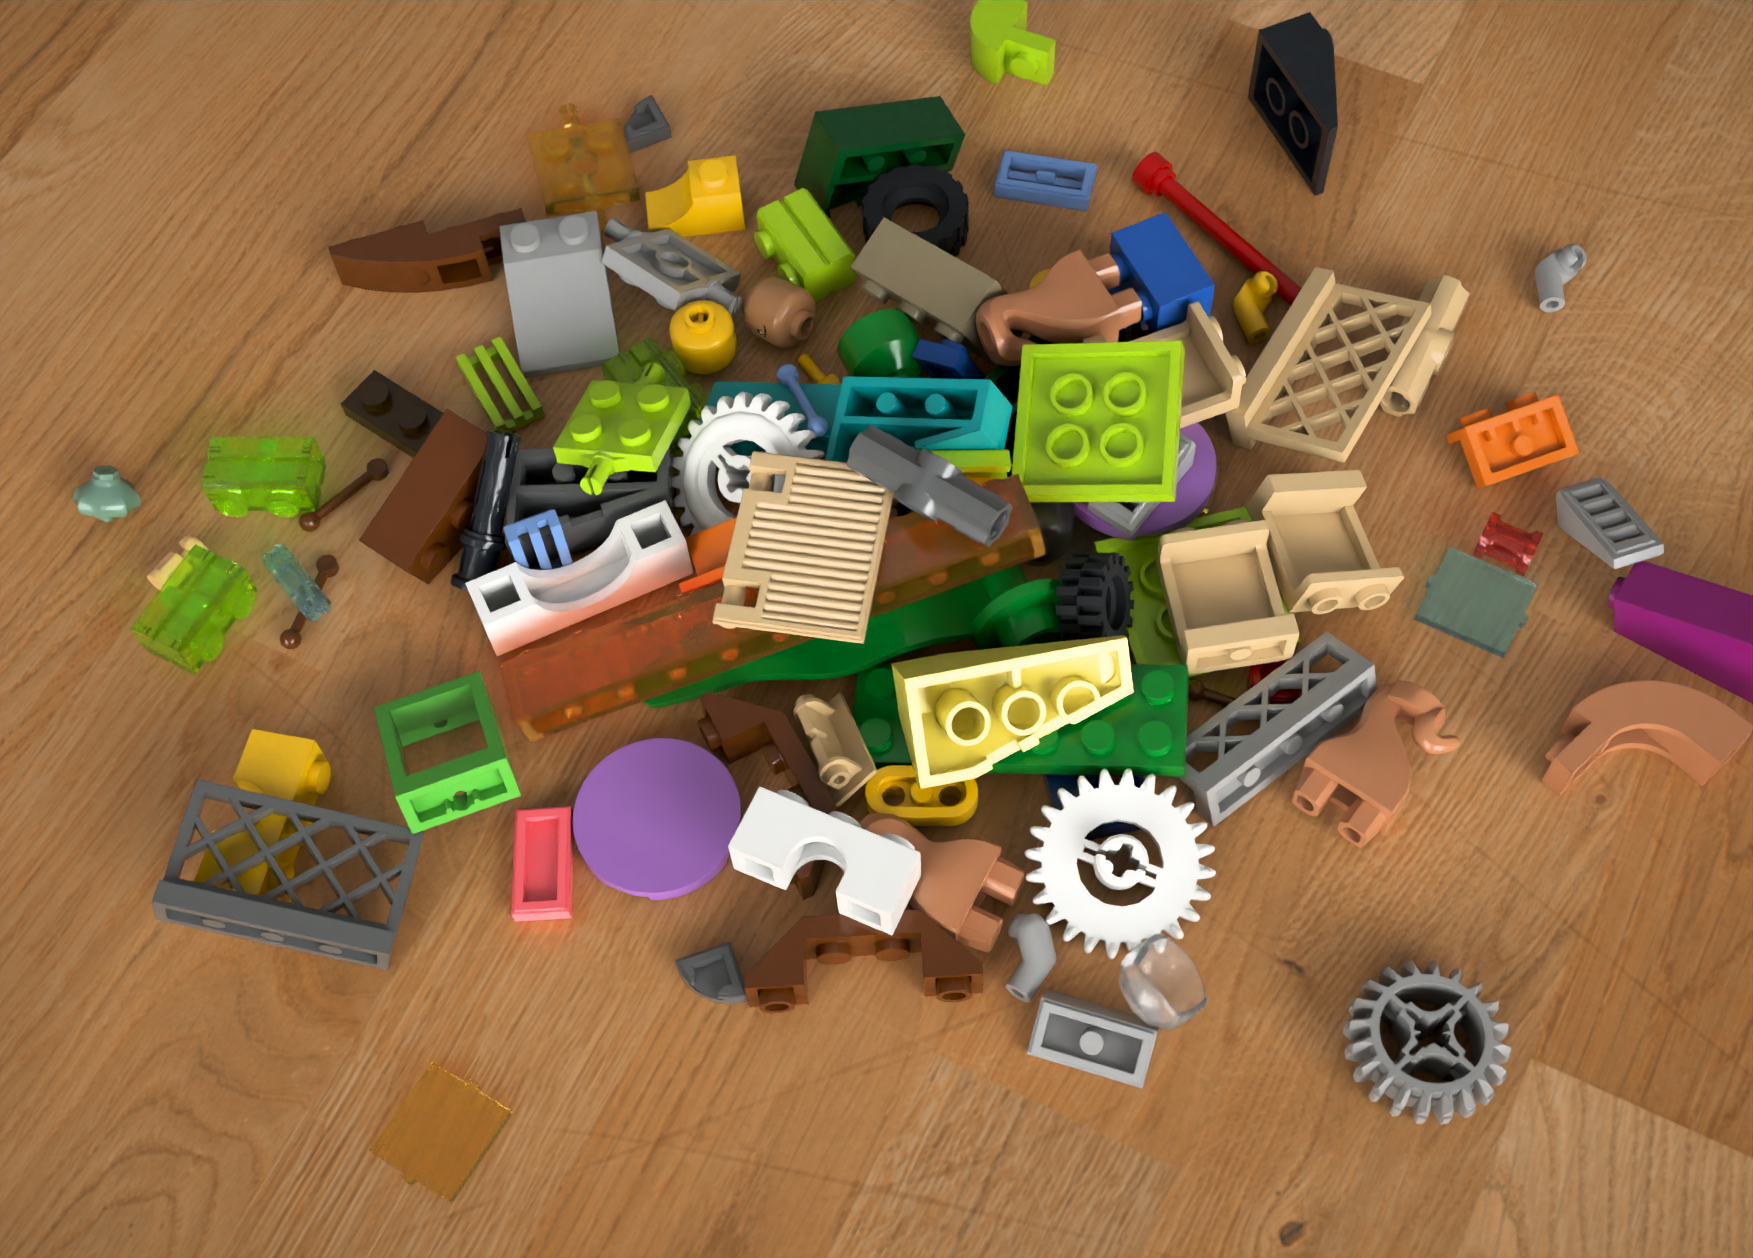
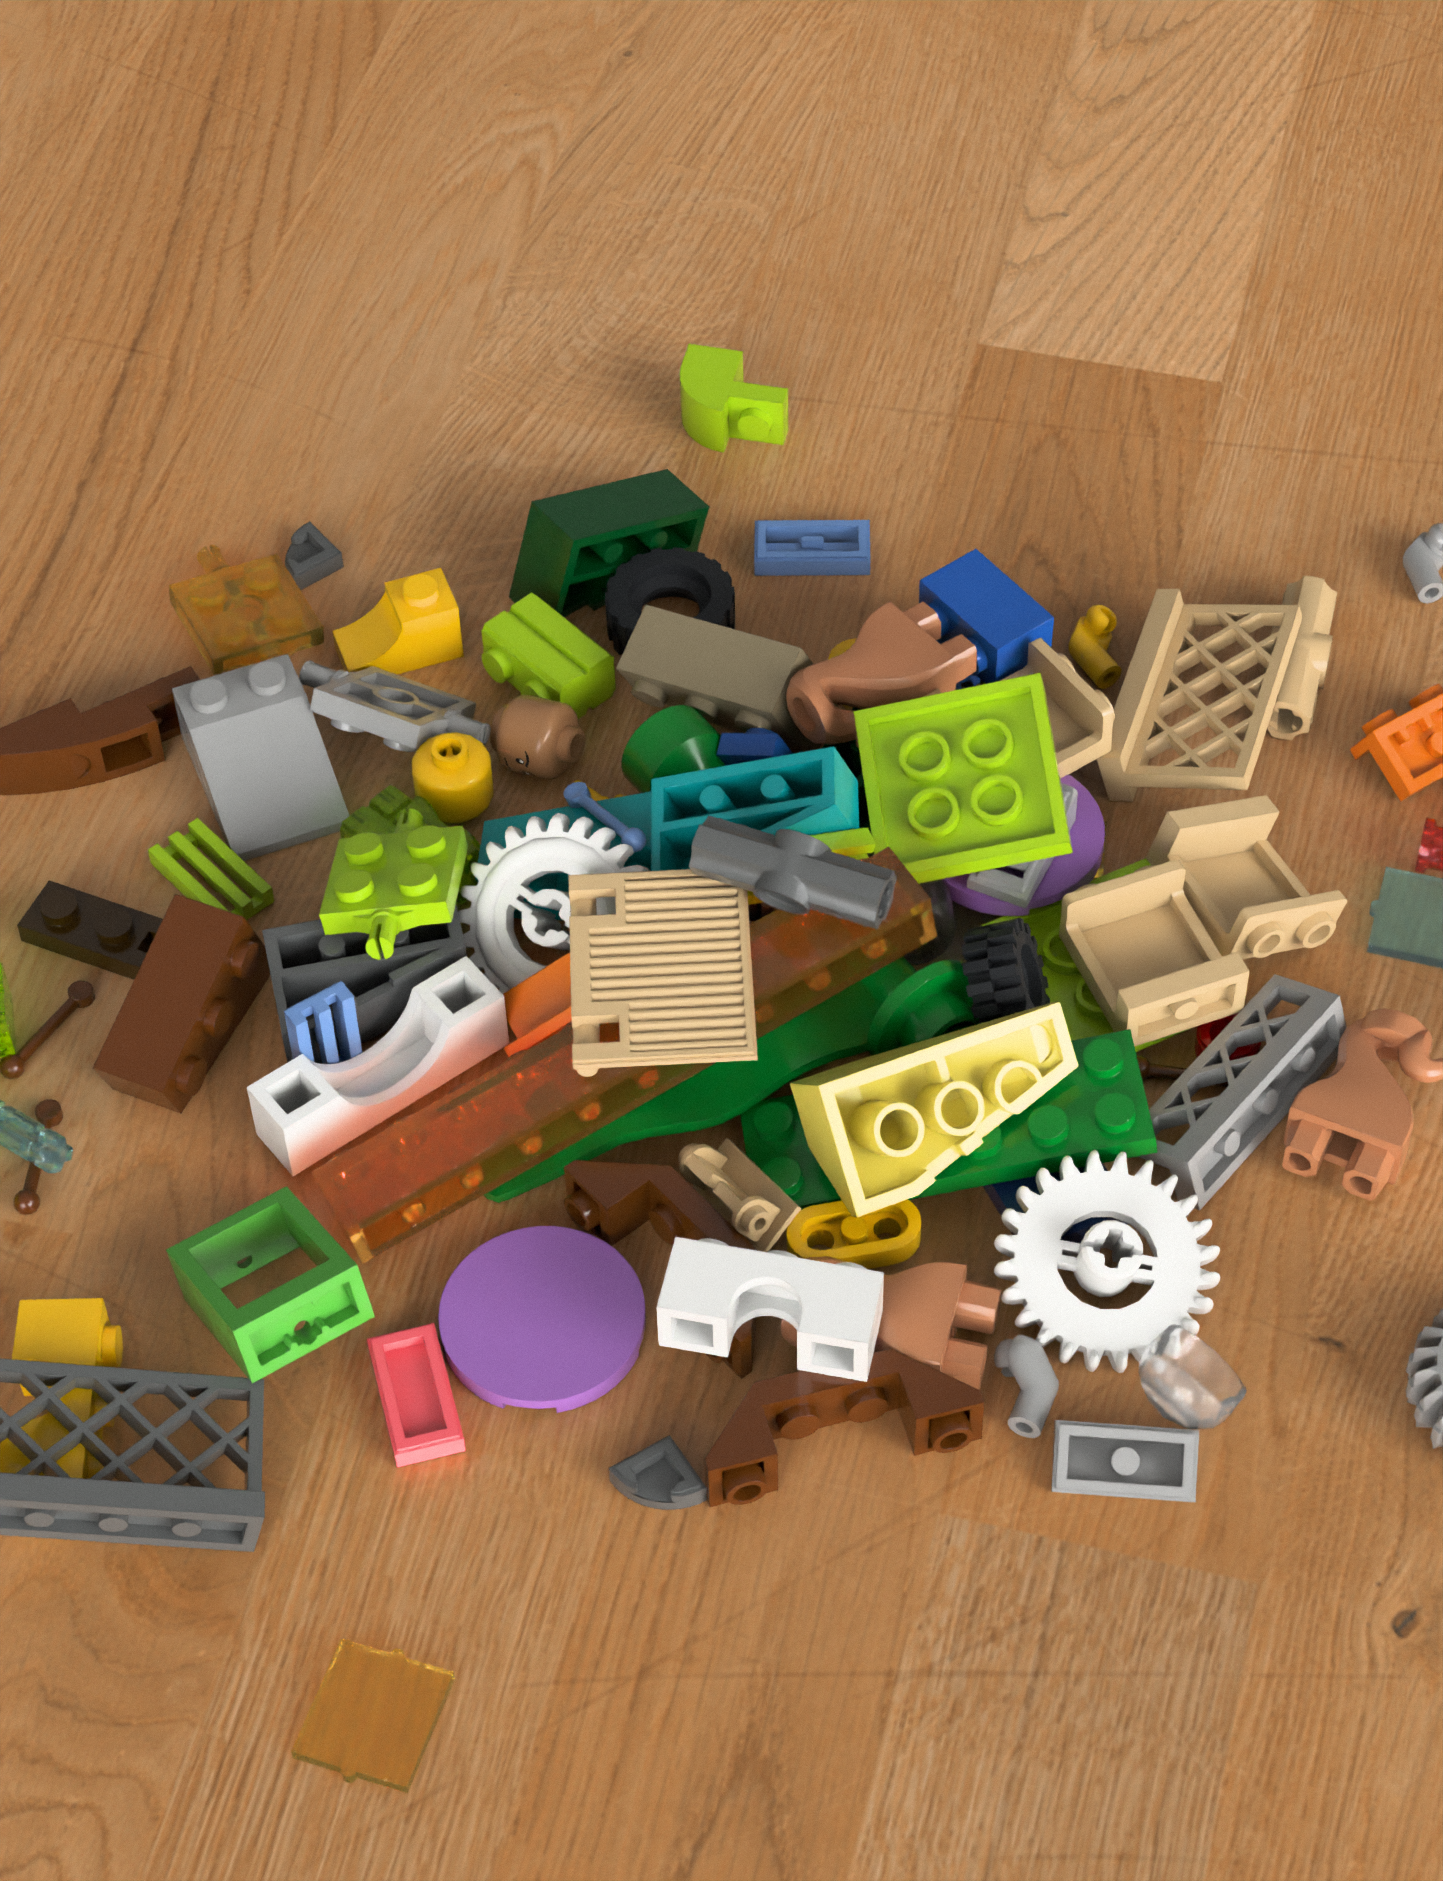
camera: 15 degrees left, 10 degrees down
(484, 536) = (249, 1037): black pin -> none
(1156, 177) = (943, 523): red piece -> none
(1297, 93) = (1087, 408): black slope -> none

